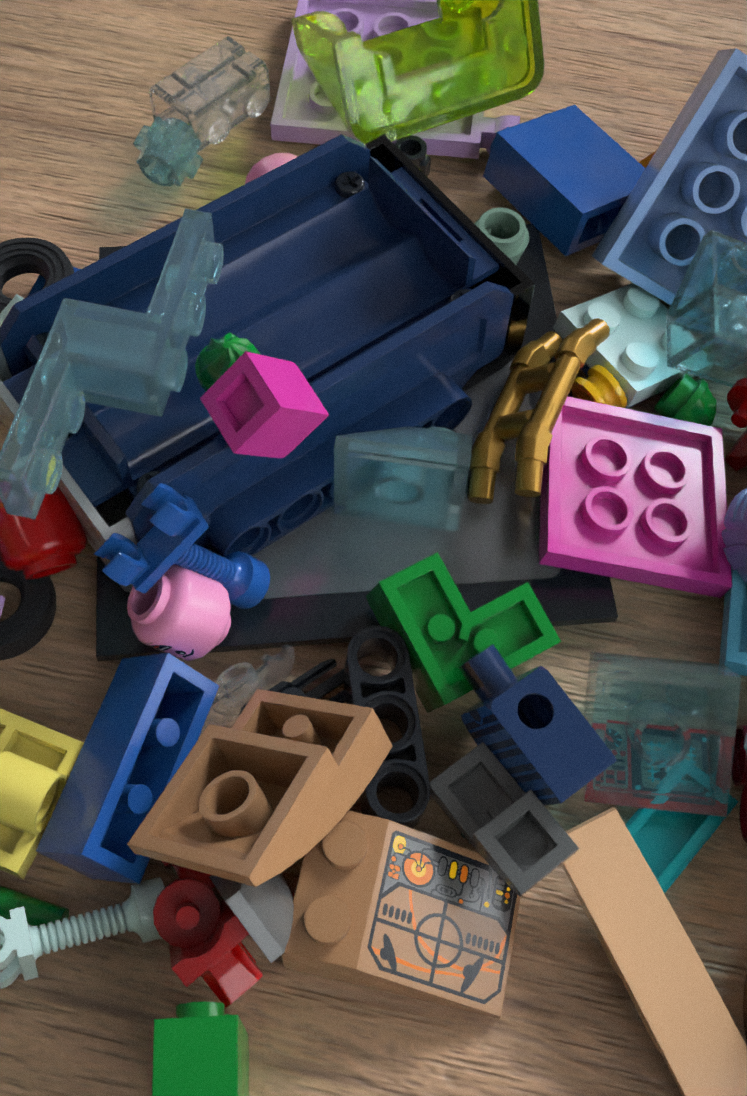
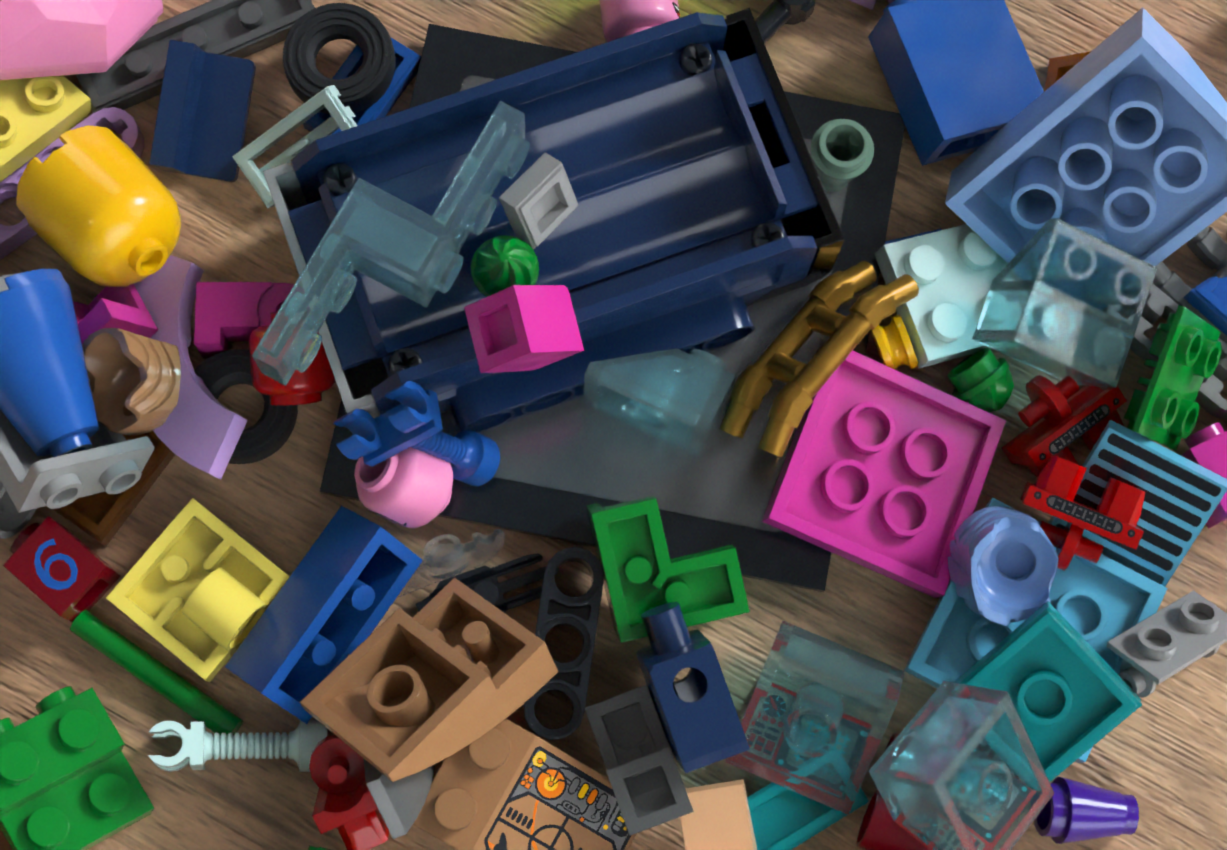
camera: 15 degrees right, 15 degrees up
(245, 299) = (539, 200): none -> light grey tile

